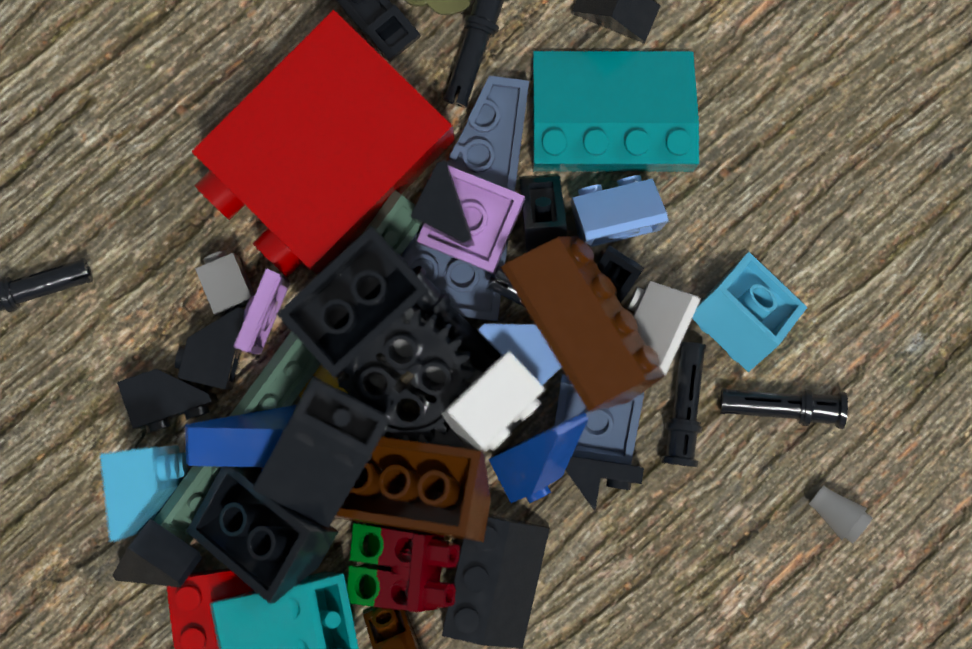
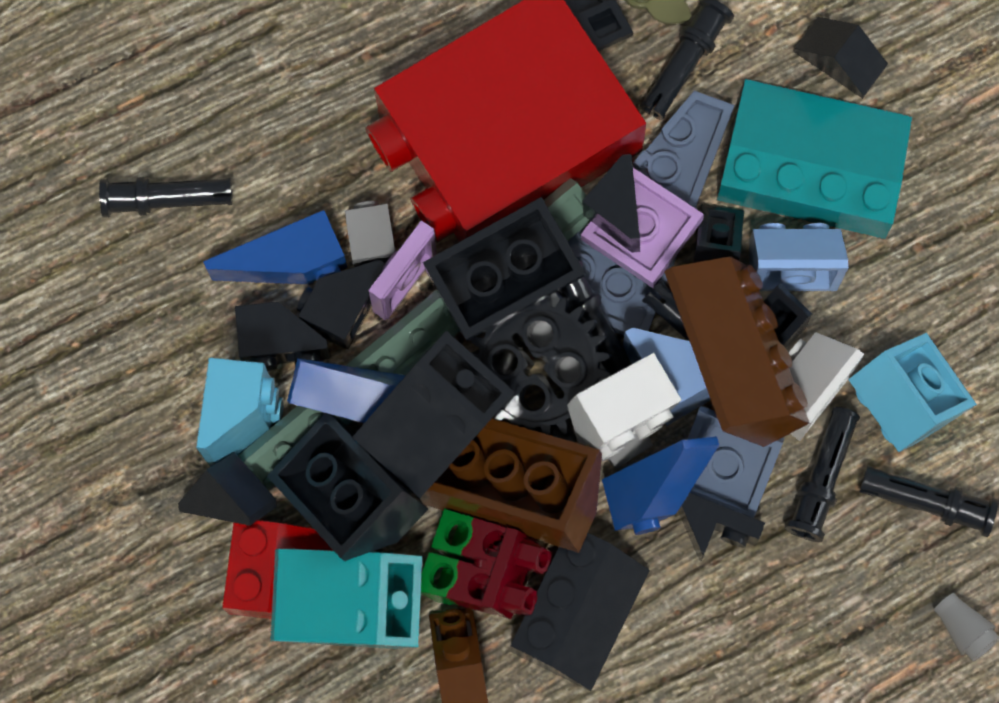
camera: 10 degrees right, 10 degrees down
(160, 316) = (286, 256): none -> blue slope

